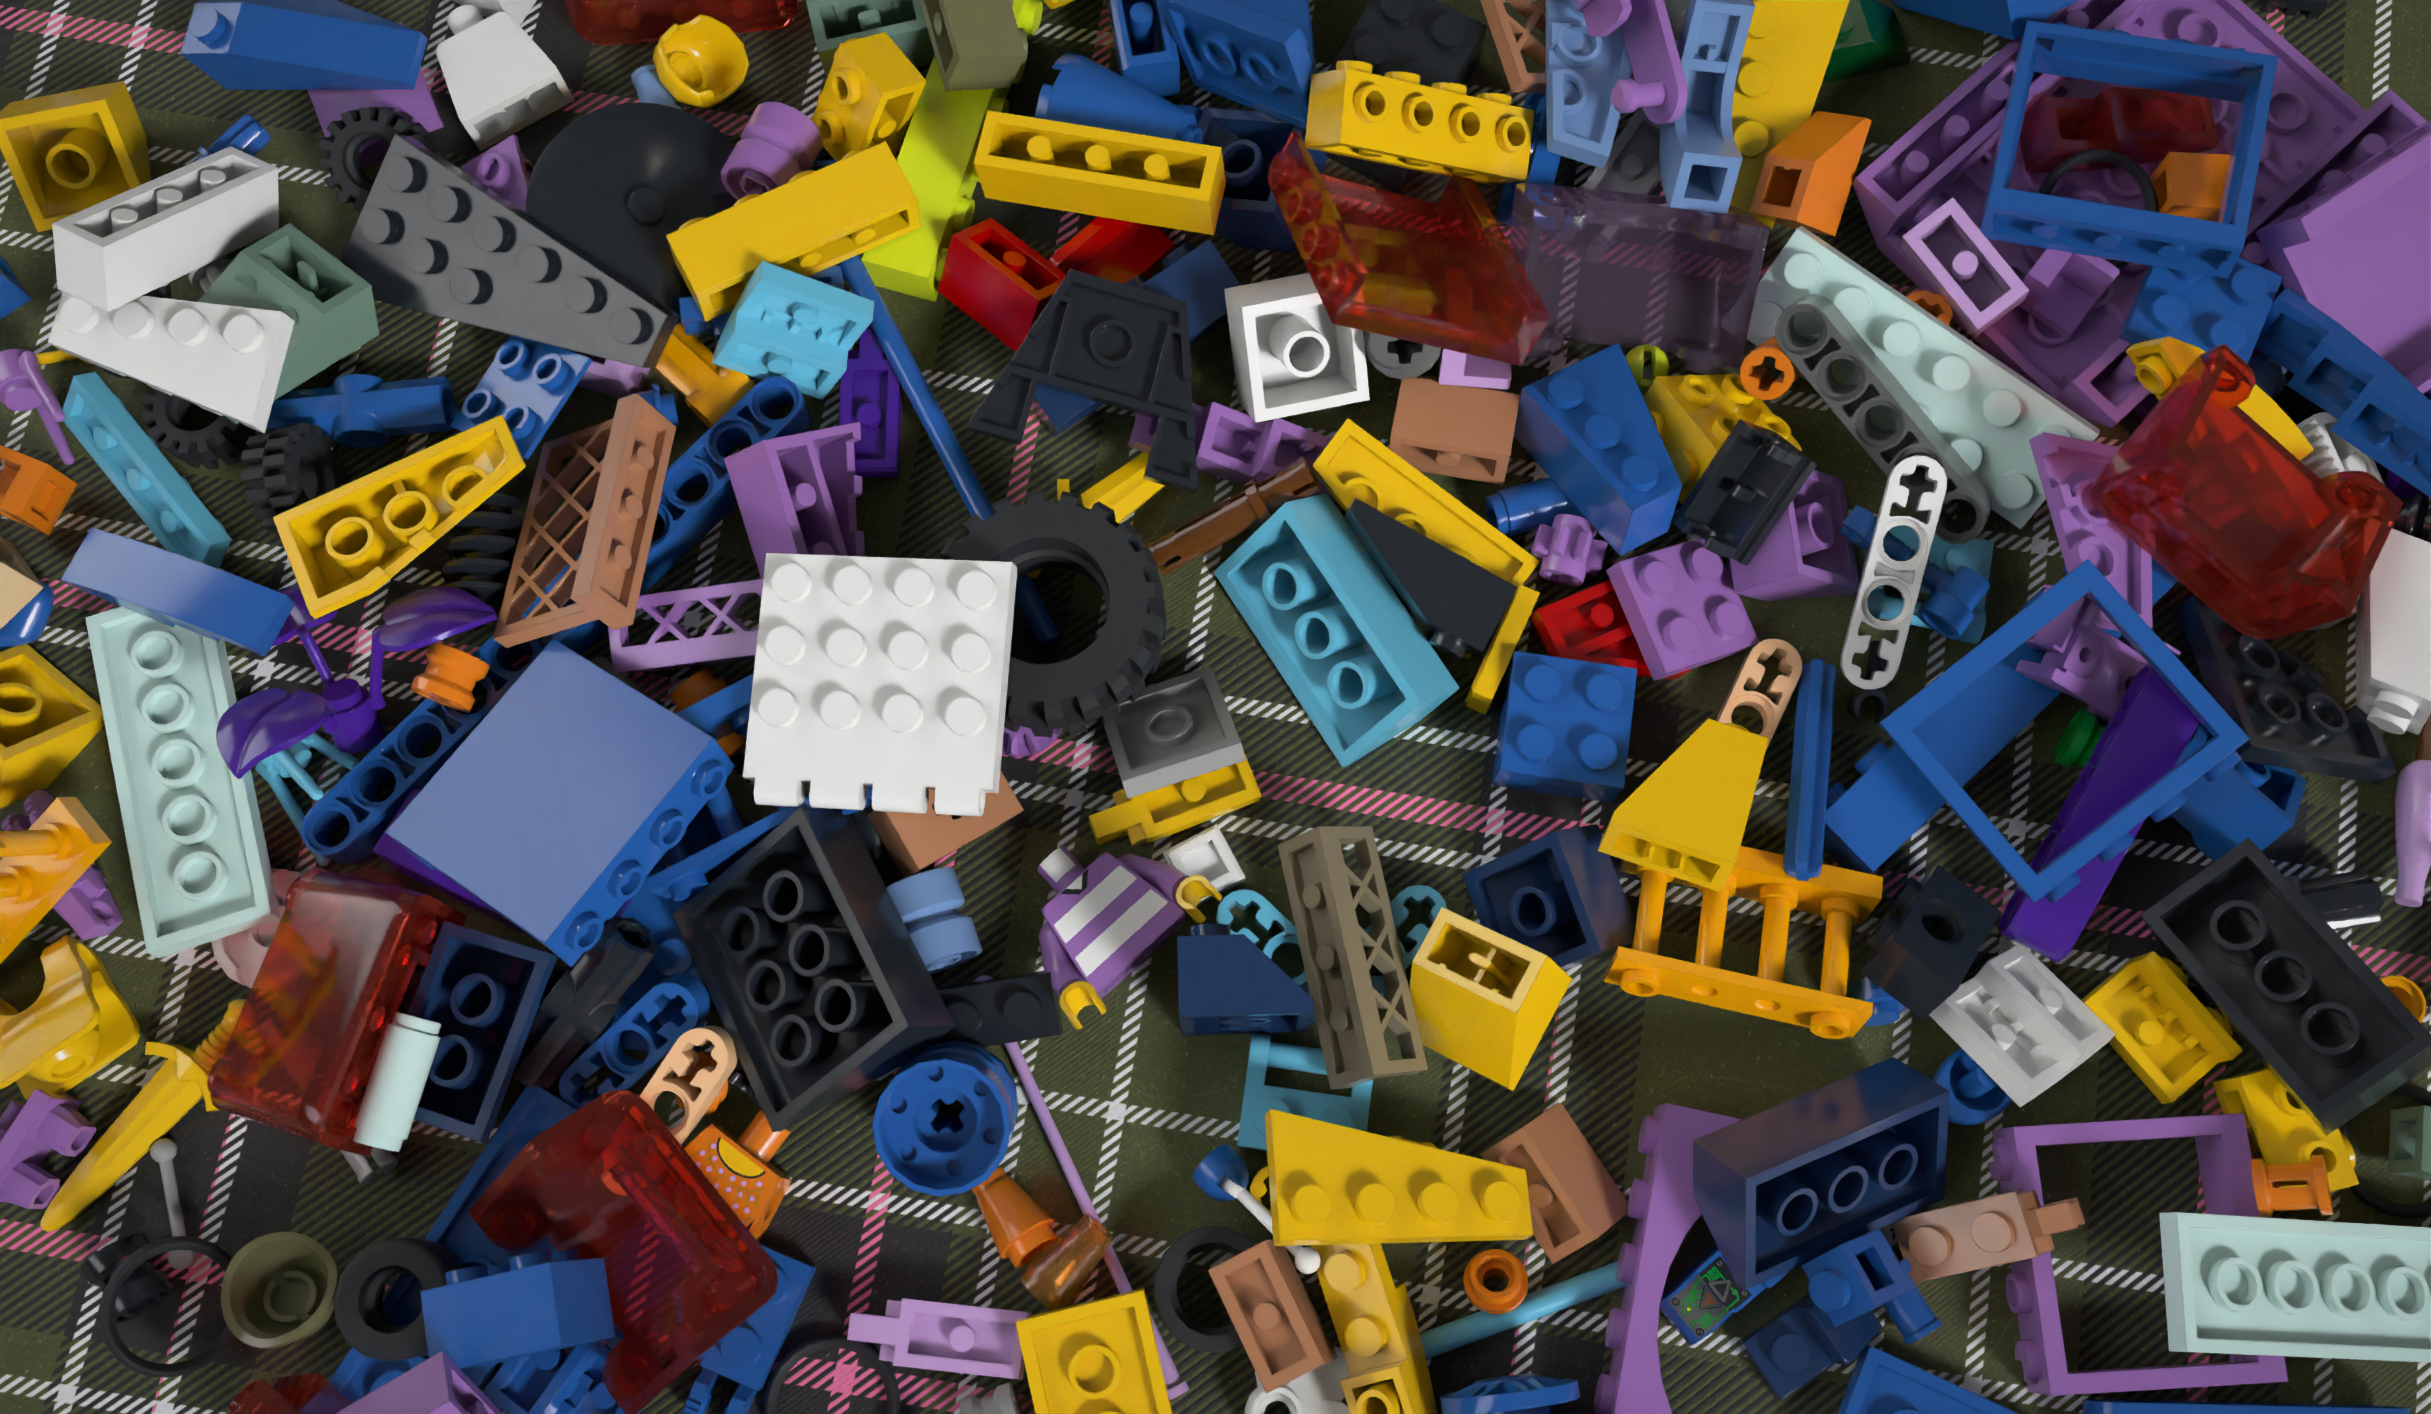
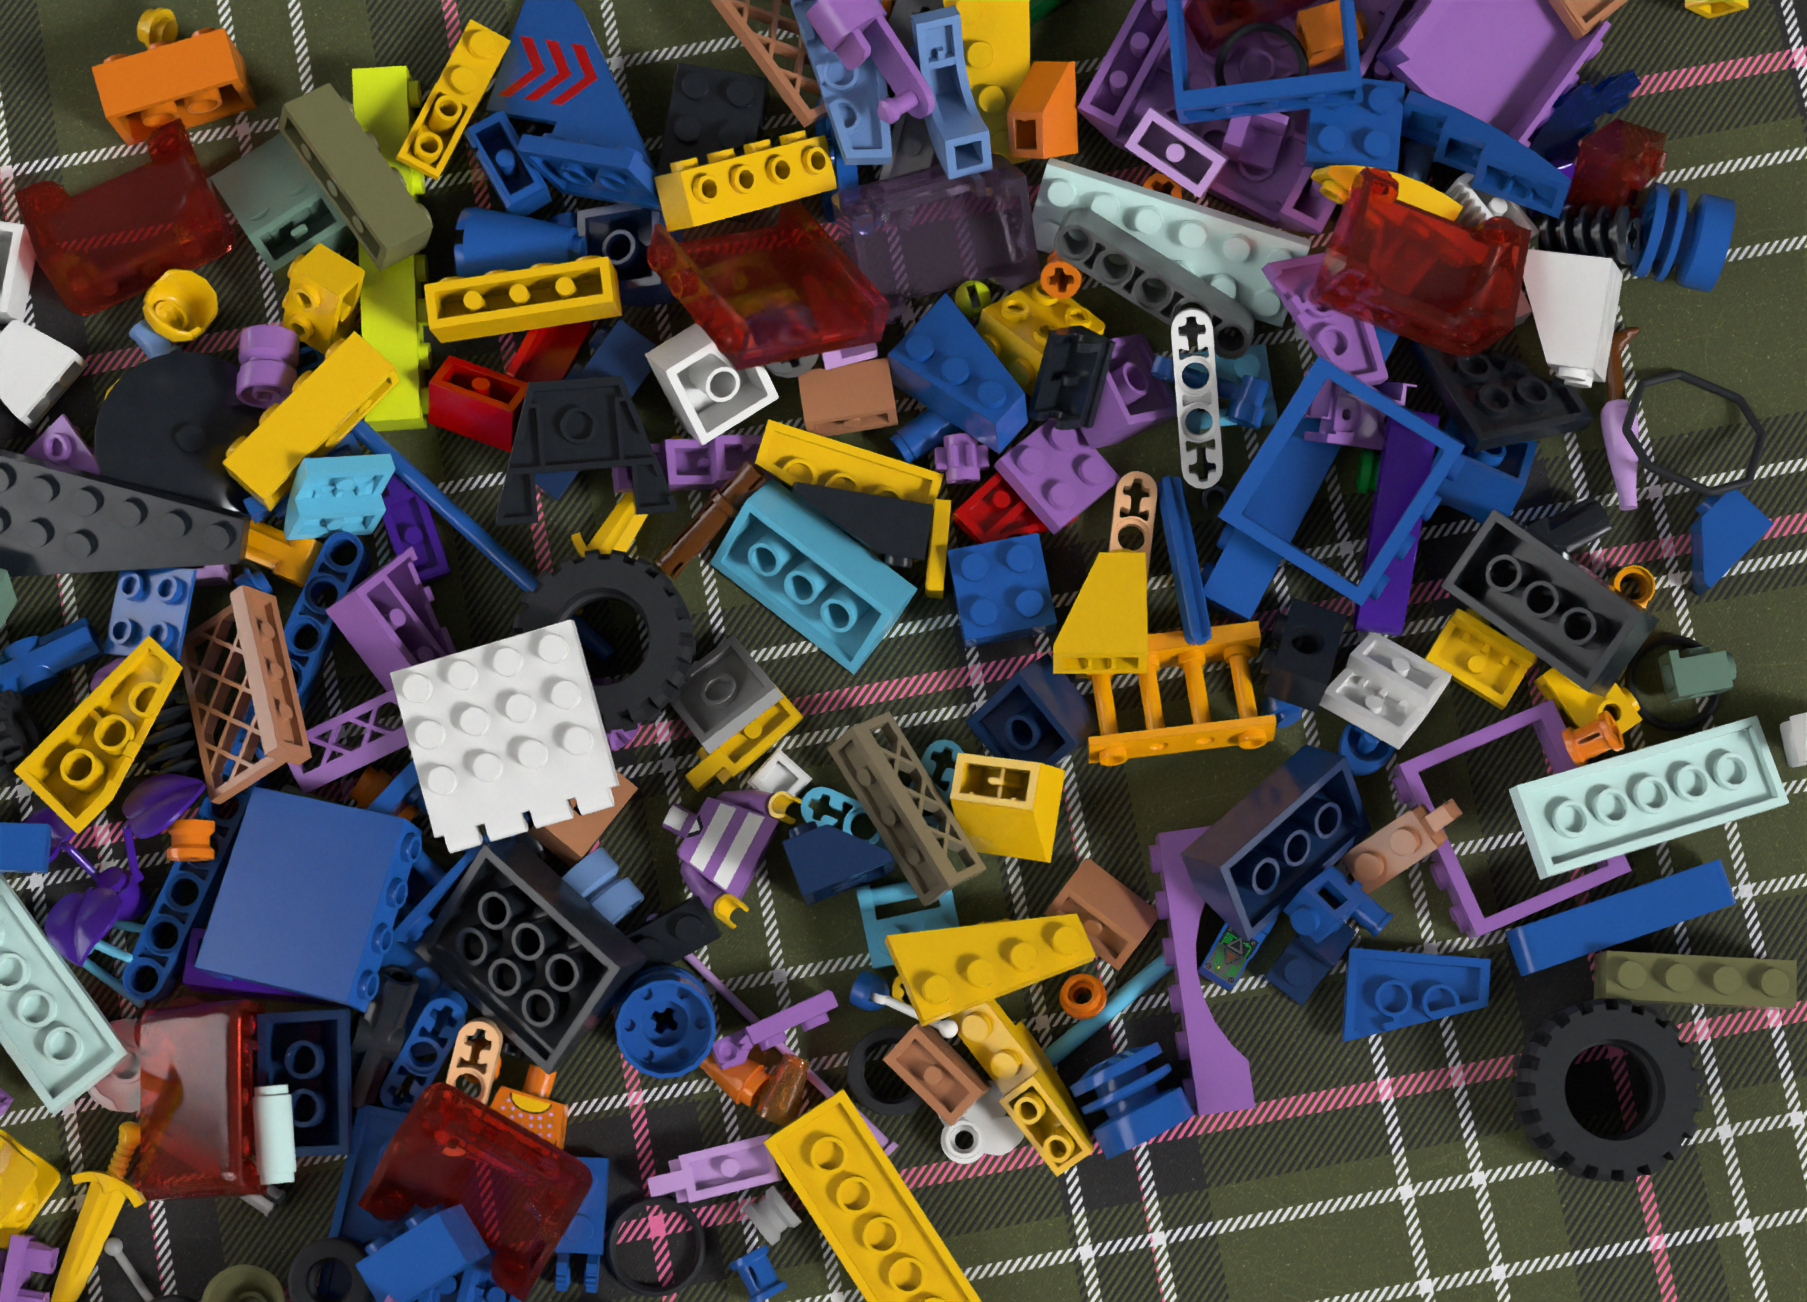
camera: 20 degrees left, 5 degrees up
(1076, 1179) = (770, 1031): none -> medium lavender hinge

